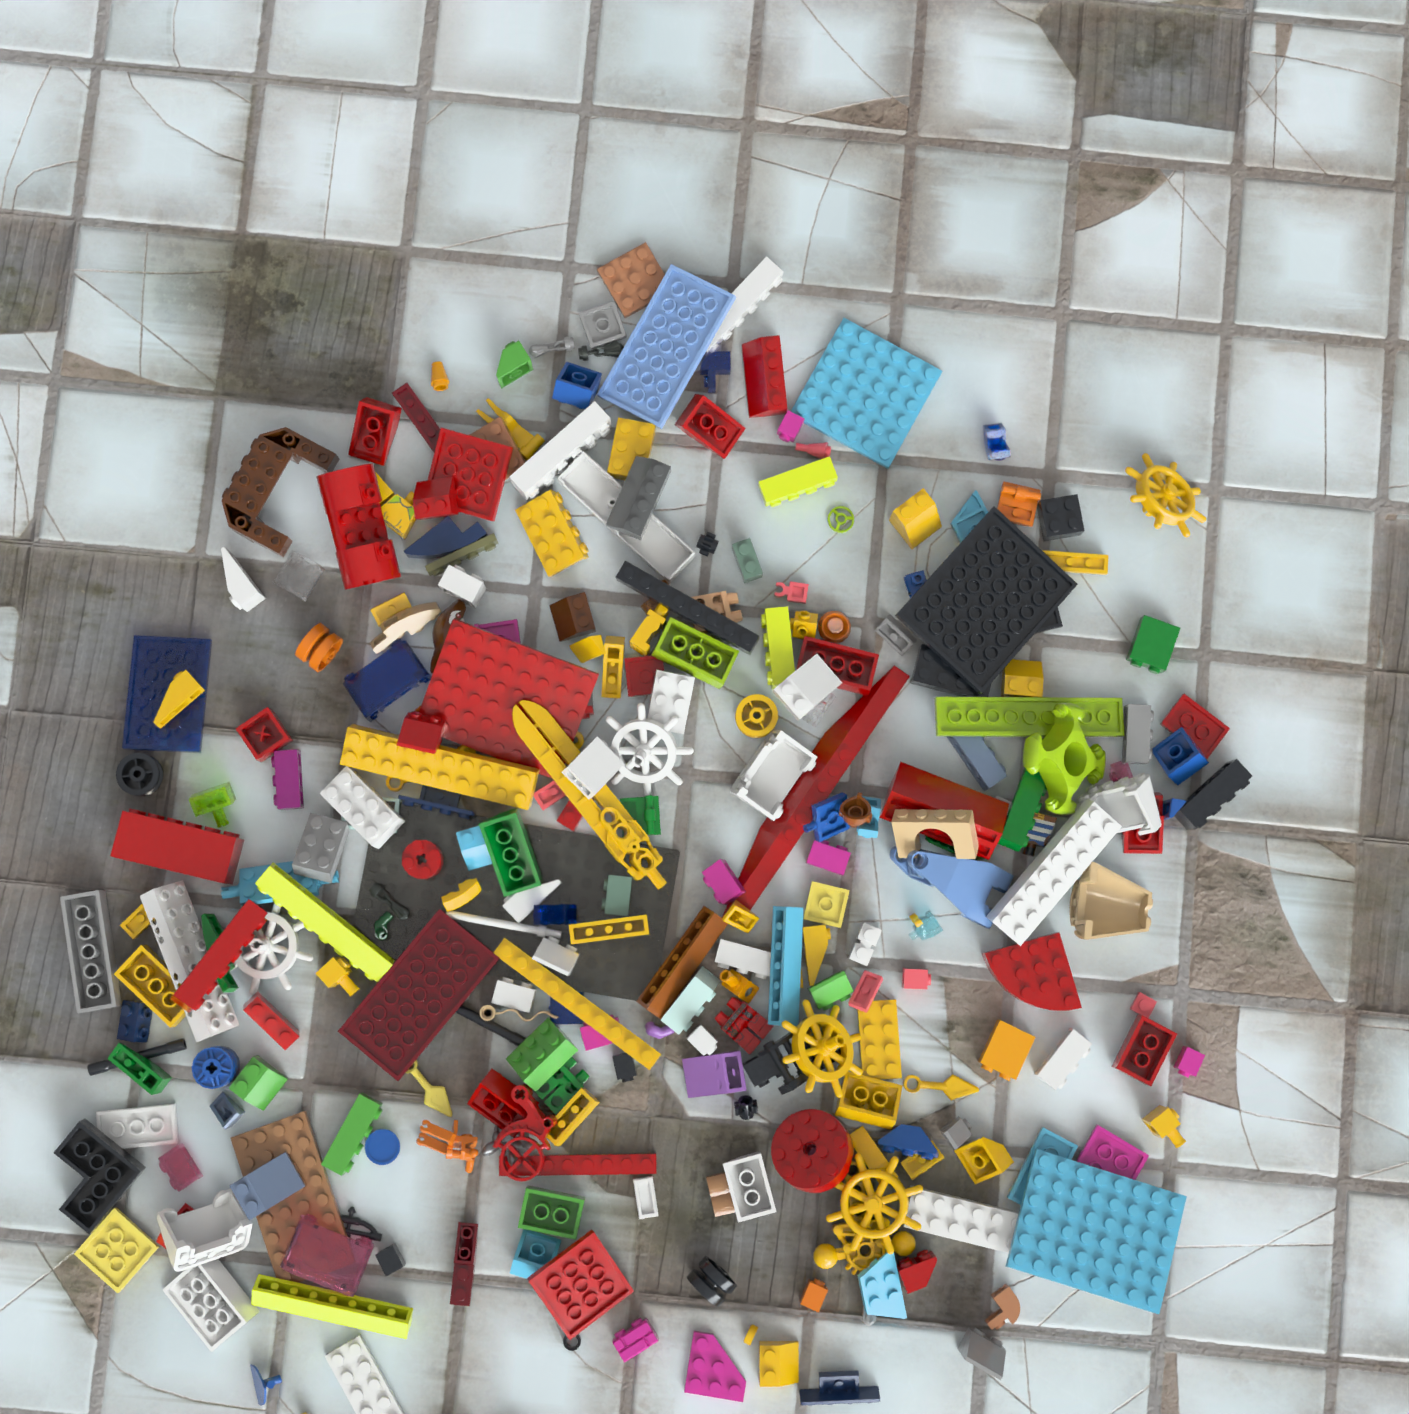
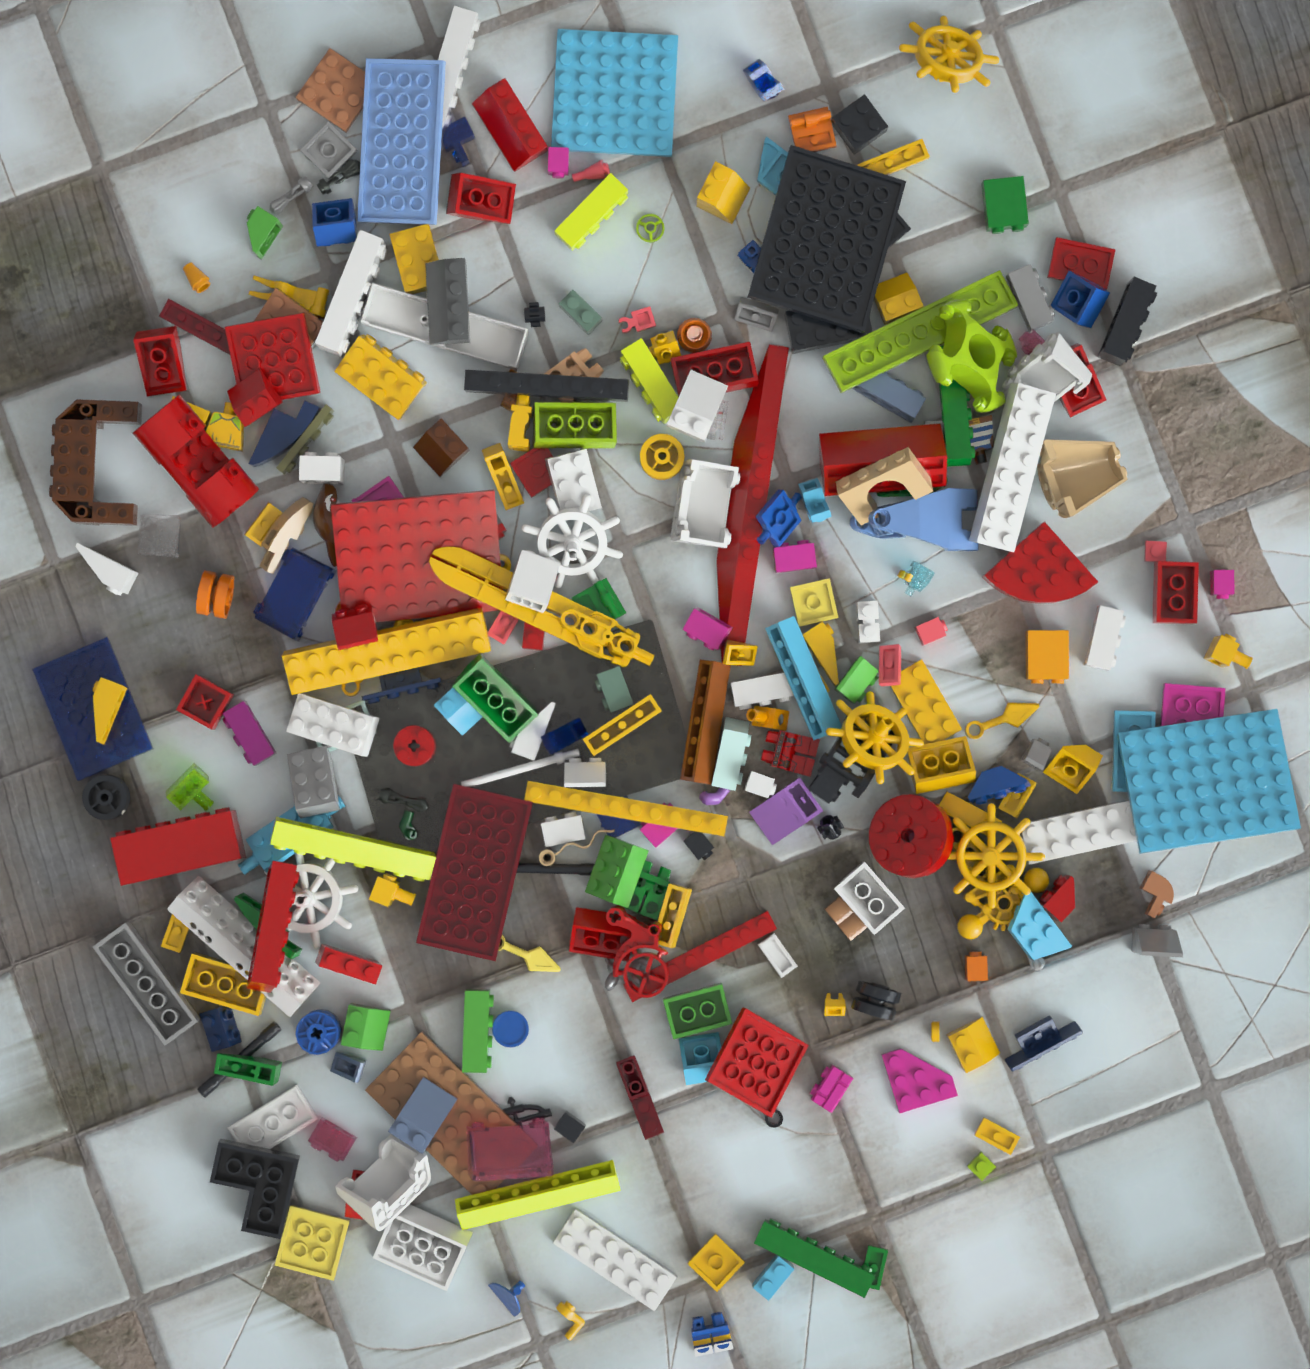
camera: 25 degrees left, 5 degrees up
(465, 1142) = (586, 987): orange piece -> none
(468, 890) = (471, 752): yellow slope -> none
(588, 648) = (471, 470): yellow slope -> none
(673, 1268) = (834, 1007): none -> yellow tile
(856, 811) = (799, 500): dark orange helmet -> none
(1171, 807) = (1094, 352): blue slope -> none

